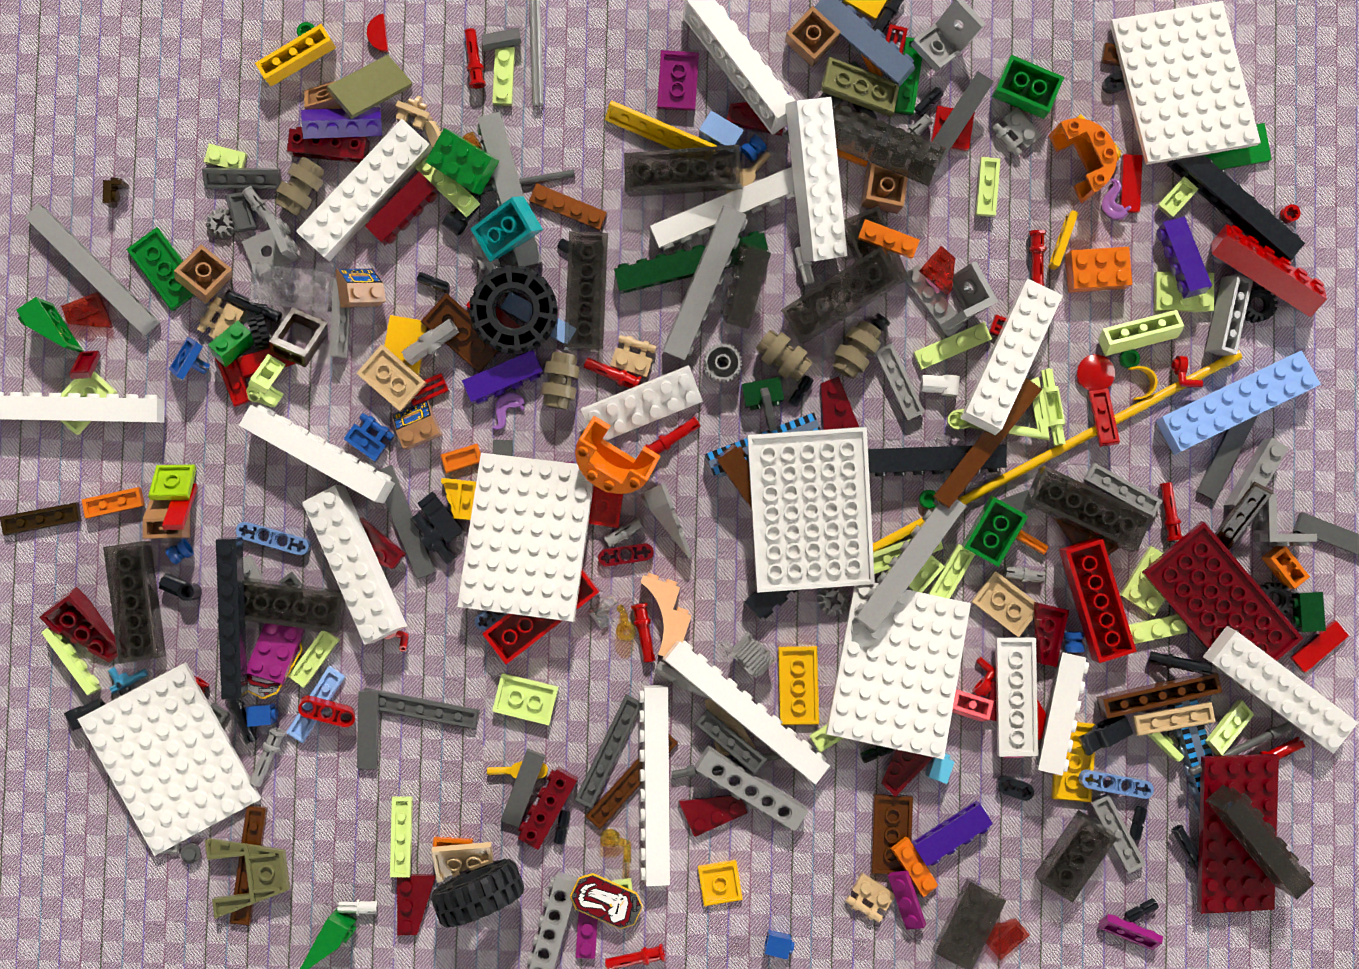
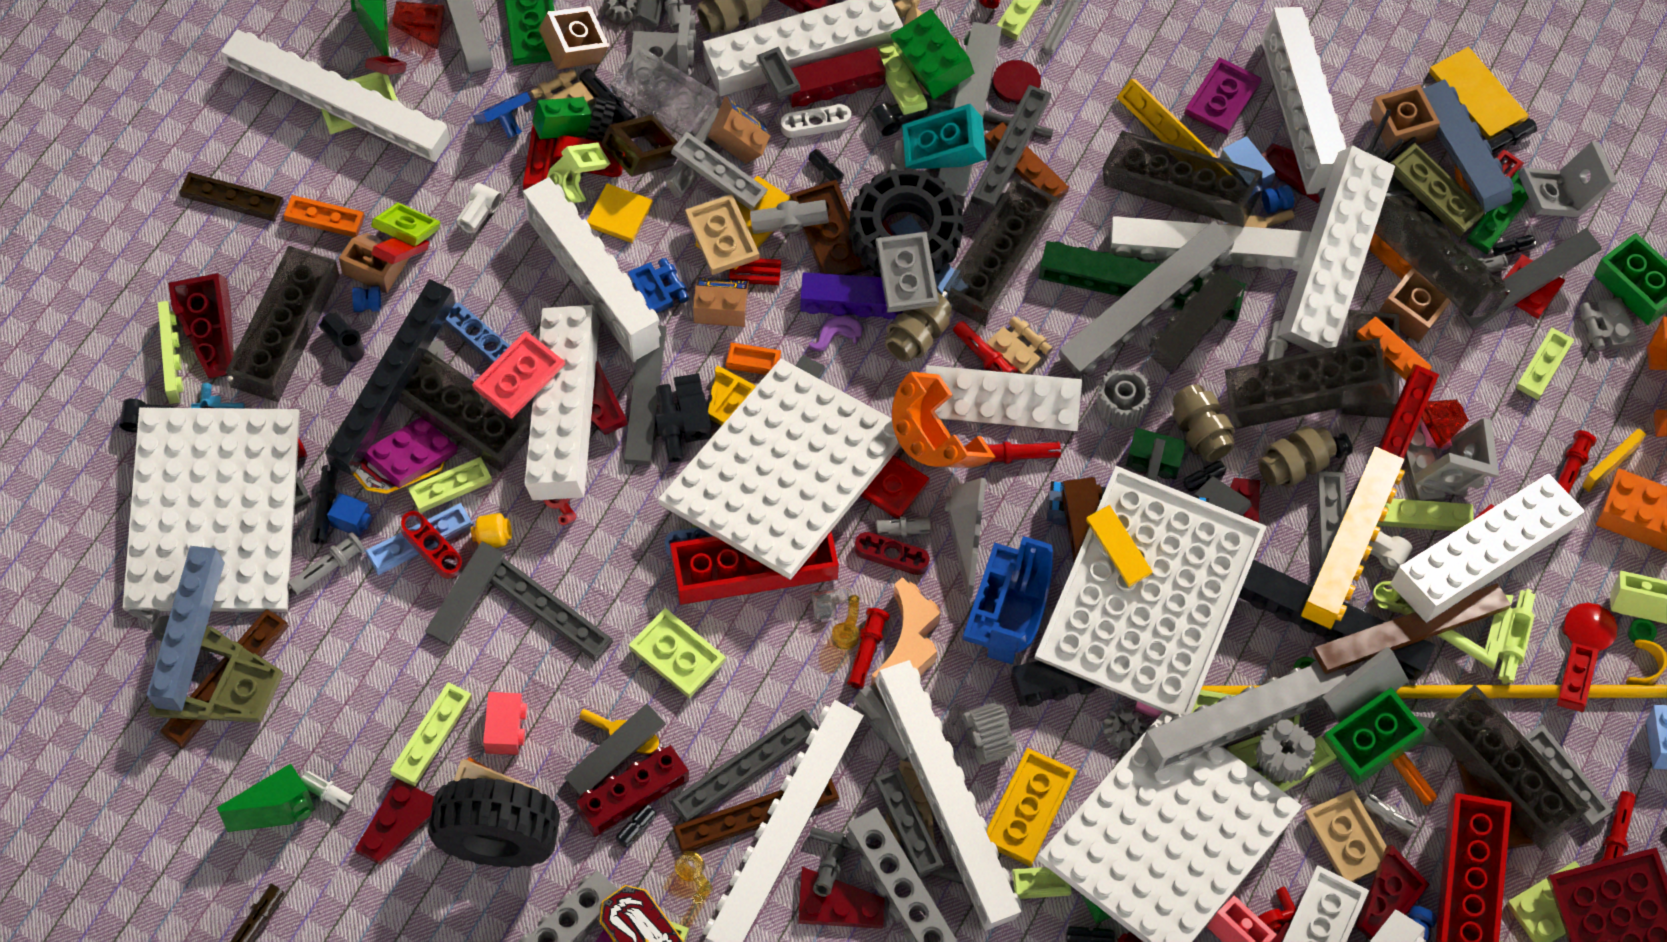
camera: 25 degrees right, 25 degrees down
(204, 858) = (185, 628): none -> sand blue brick
(214, 435) = (481, 203): none -> white piece
(312, 393) = (619, 213): none -> yellow tile
(315, 567) = (518, 374): none -> coral tile
(360, 678) = (492, 530): none -> yellow head
(362, 231) = (778, 72): none -> dark grey tile
(363, 331) = (719, 171): none -> light grey plate
(392, 252) = (810, 129): none -> white beam
(443, 805) = (503, 723): none -> coral brick
(529, 142) = (1013, 79): none -> dark red tile
(534, 352) = (907, 272): none -> light grey tile
(553, 203) = (1011, 147): none -> dark grey tile
(697, 797) = (829, 870): none -> dark grey pin
(722, 561) = (1009, 610): none -> blue piece
(777, 492) = (1119, 545): none -> yellow tile
(808, 78) = (1388, 156): none -> black plant
(822, 405) = (1224, 496): none -> dark grey tile
(916, 283) = (1408, 410): none -> red tile
(922, 396) = (1353, 537): none -> brick
(955, 573) = (1288, 739): none -> light grey brick
(976, 502) = (1365, 684): none -> light grey tile

